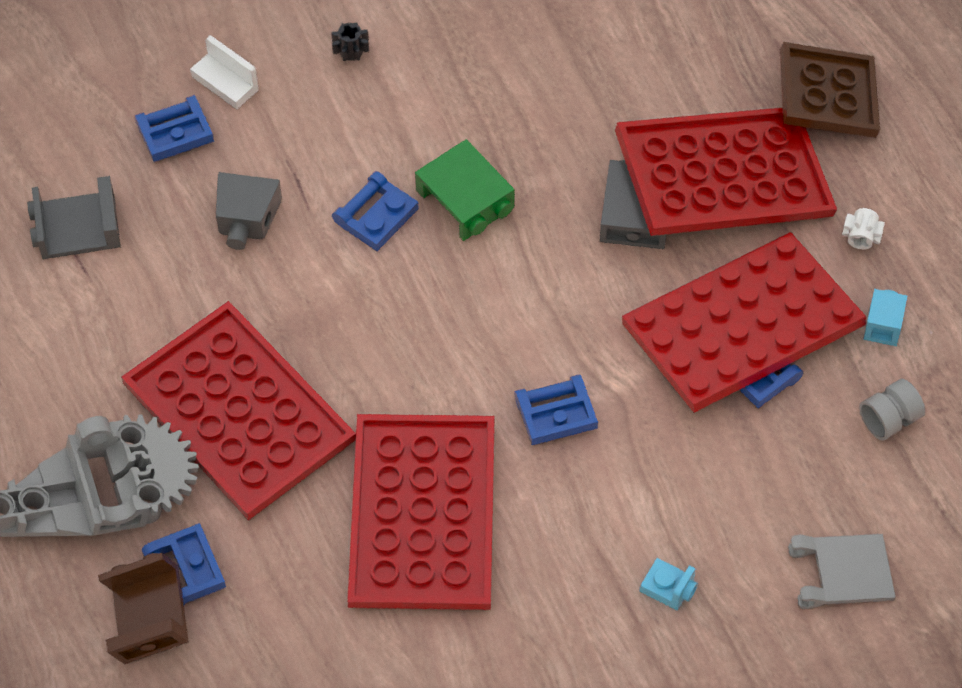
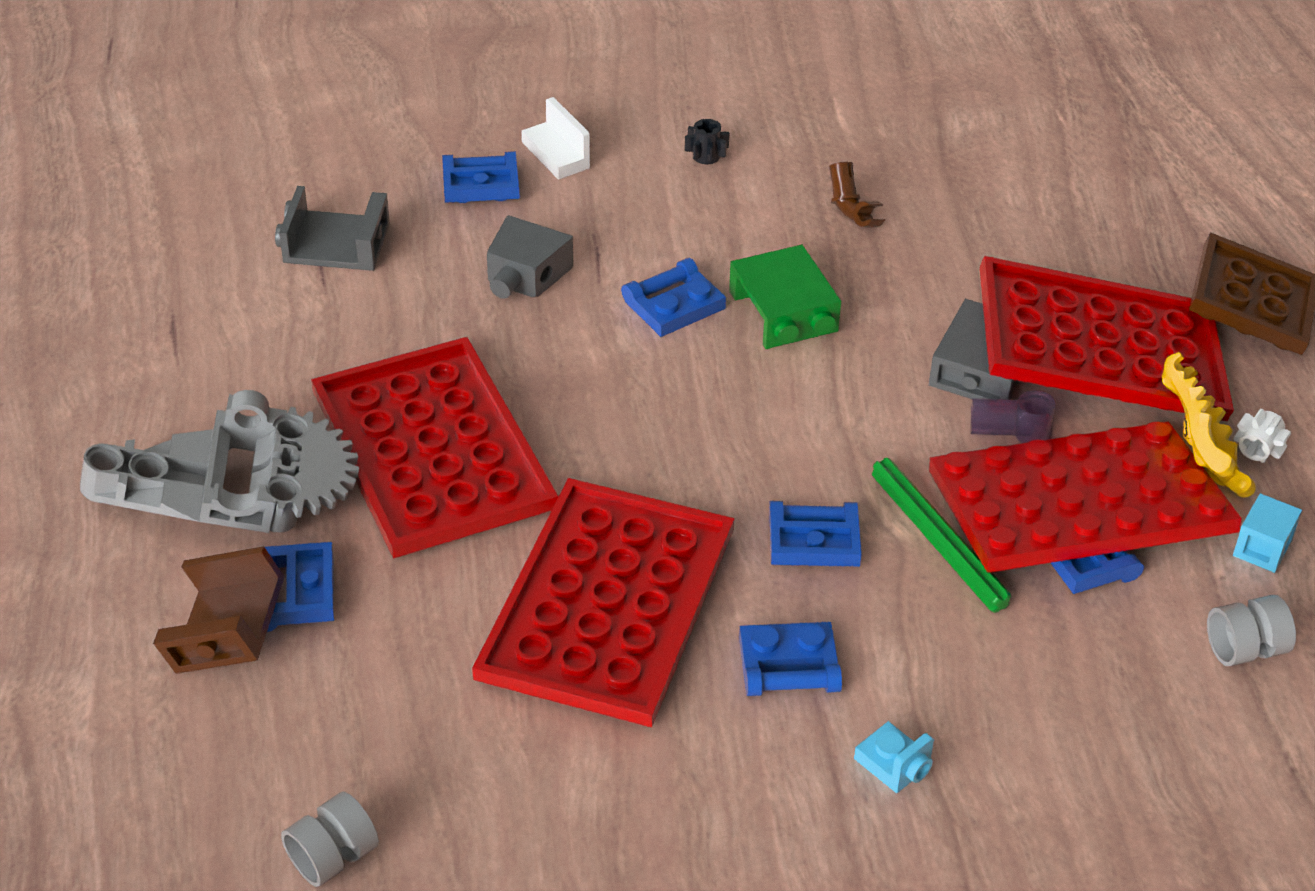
camera: 15 degrees right, 15 degrees down
(484, 72) = (847, 198): none -> reddish brown piece
(568, 515) = (789, 657): none -> blue plate
(647, 382) = (941, 535): none -> green axle
(673, 263) = (1026, 418): none -> clear purple piece
(820, 238) = (1203, 428): none -> yellow animal
(848, 568) = (1139, 800): light grey flag -> none

